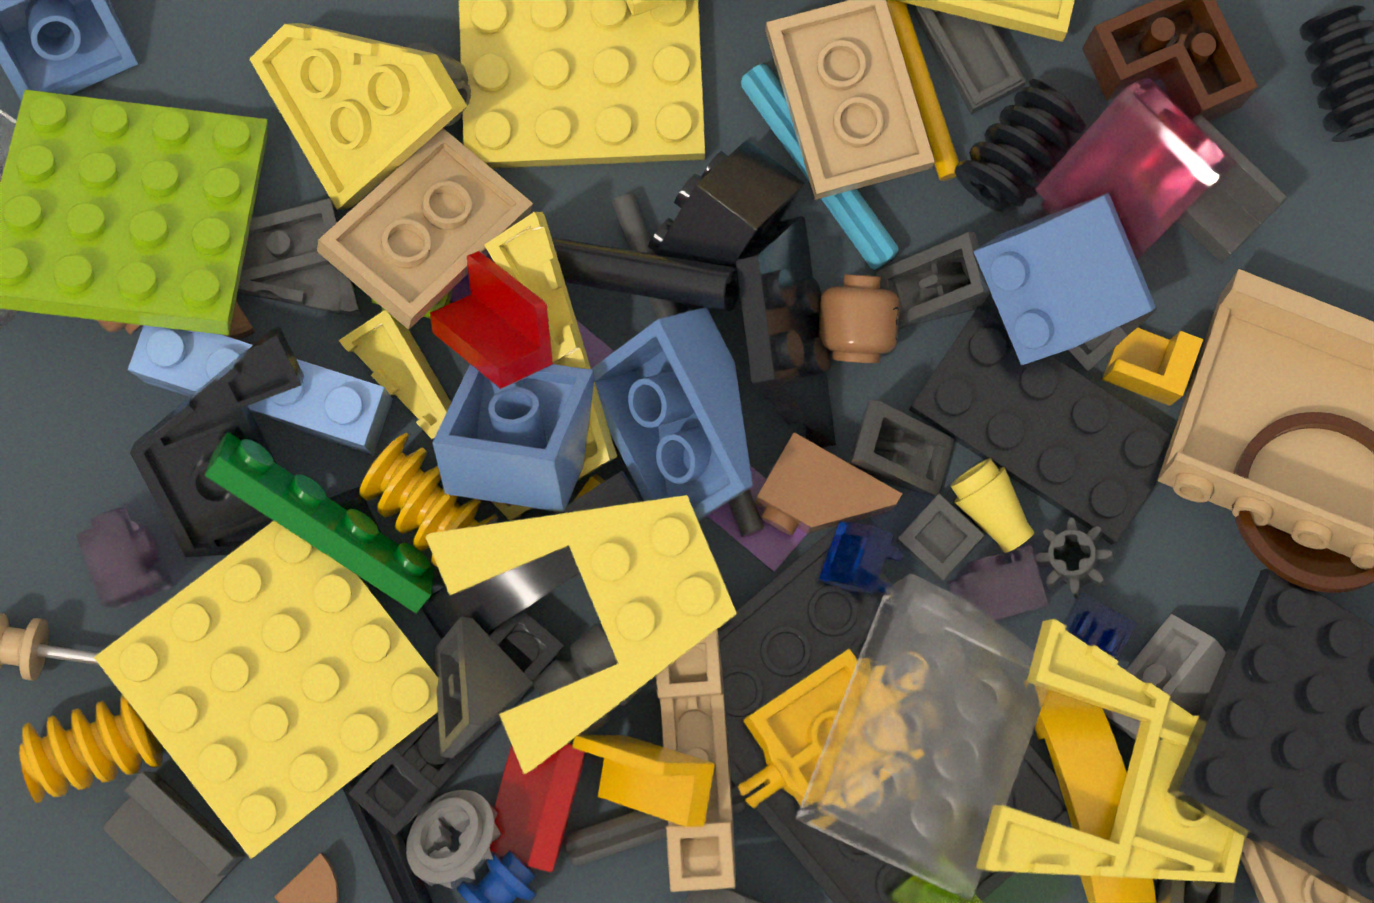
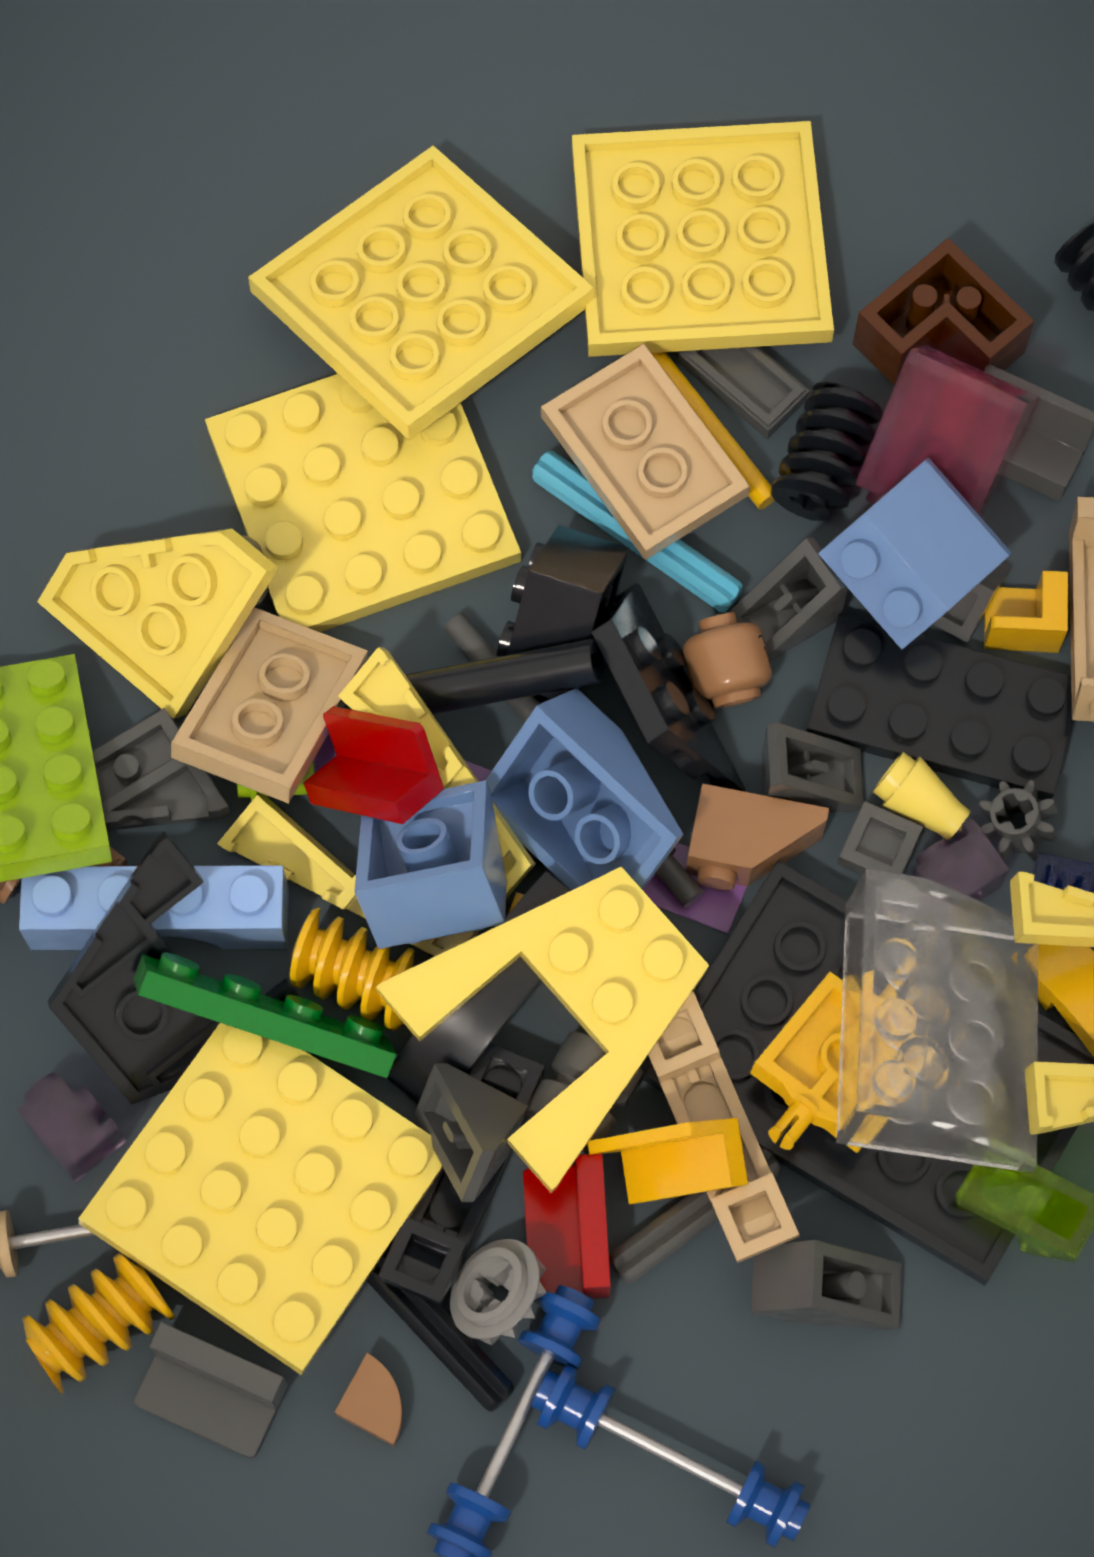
camera: 15 degrees left, 10 degrees down
(858, 558) = (808, 882): clear blue tile -> none

